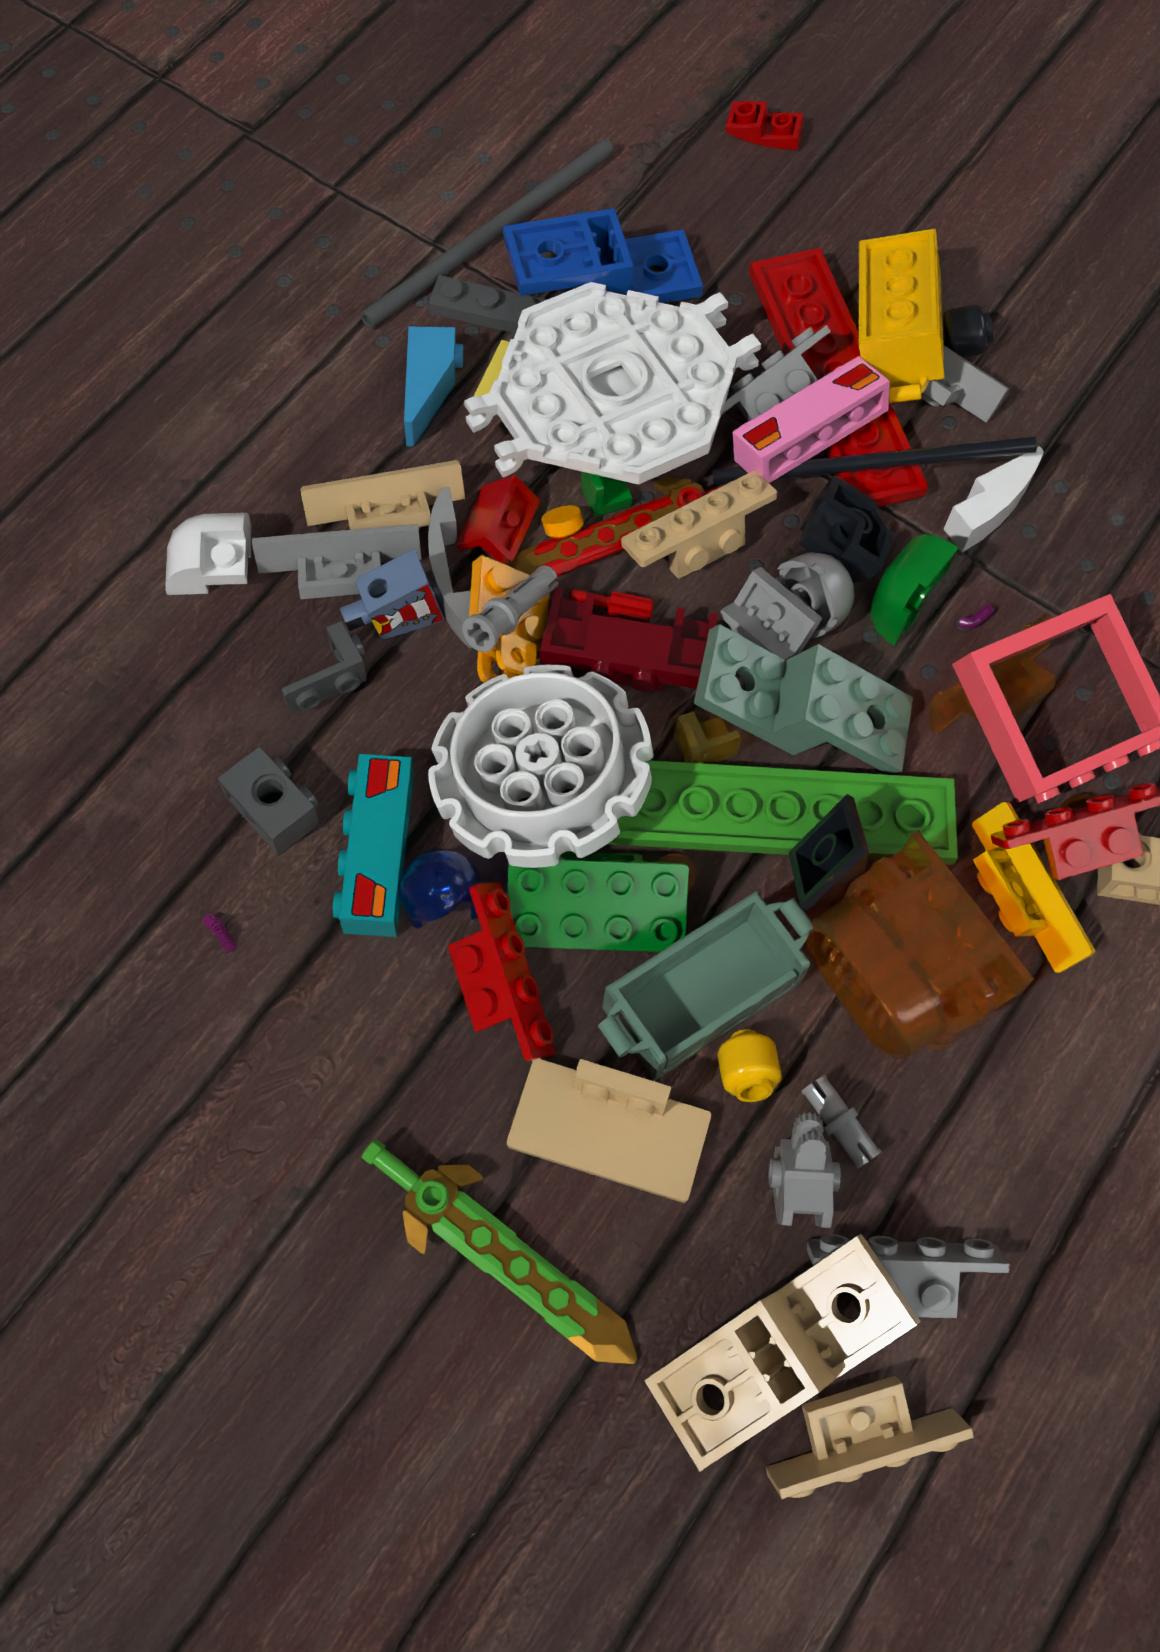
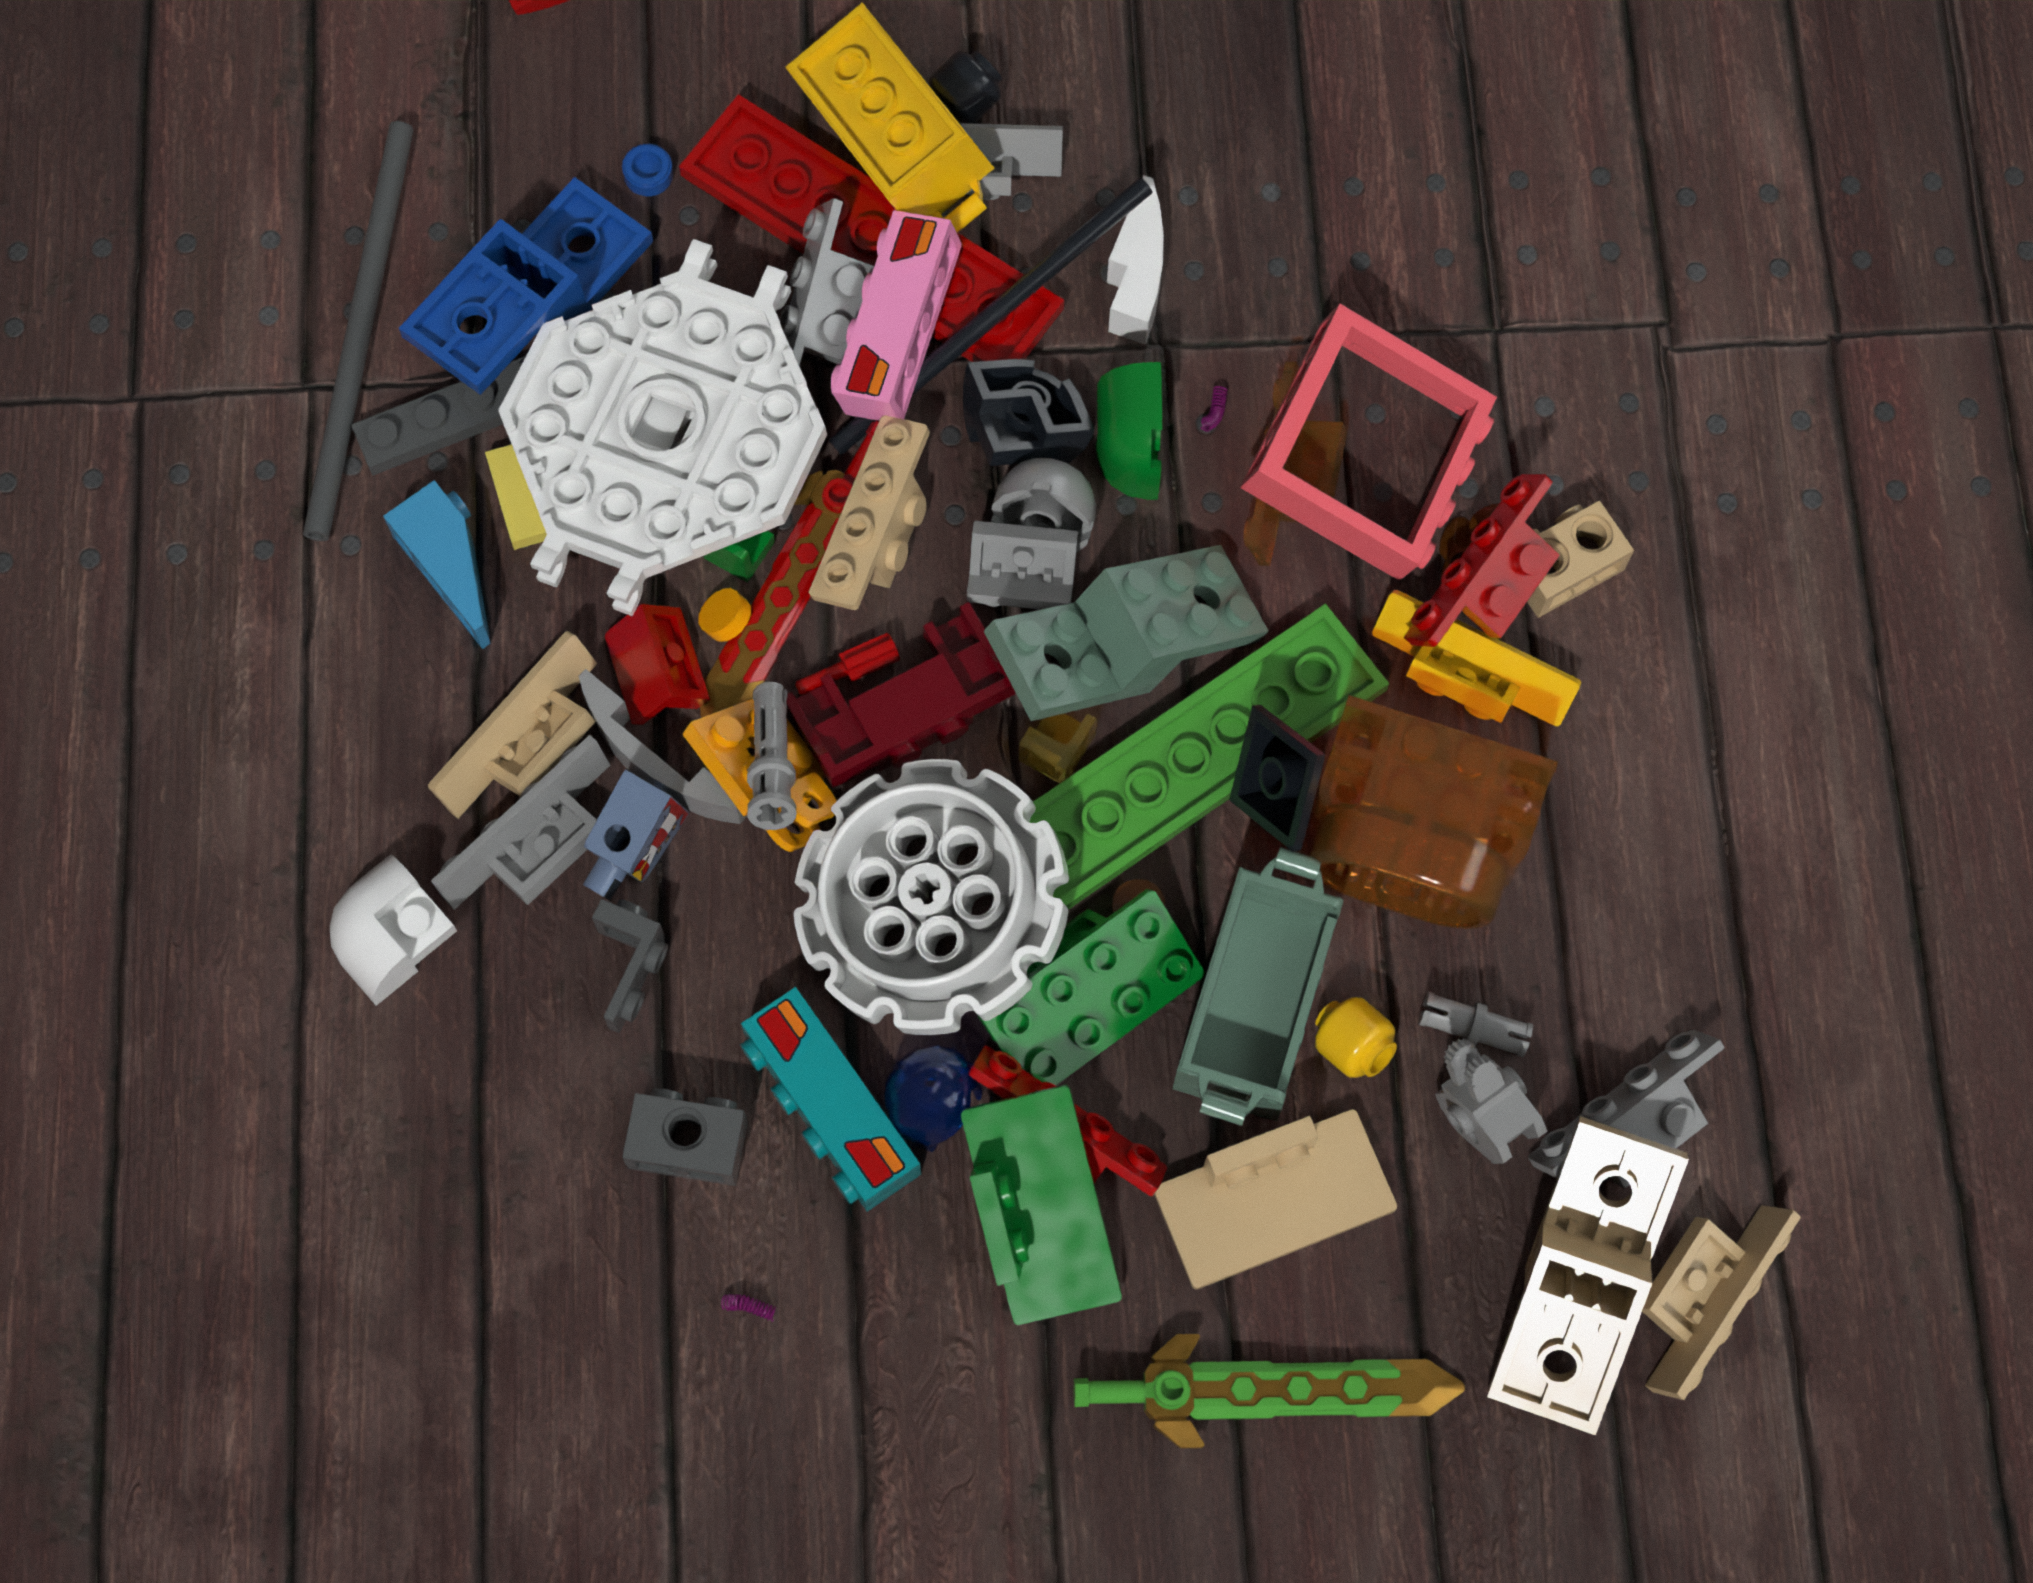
camera: 35 degrees left, 5 degrees up
(443, 1007) = (1039, 1205): none -> green bracket
(731, 257) = (647, 170): none -> blue tile

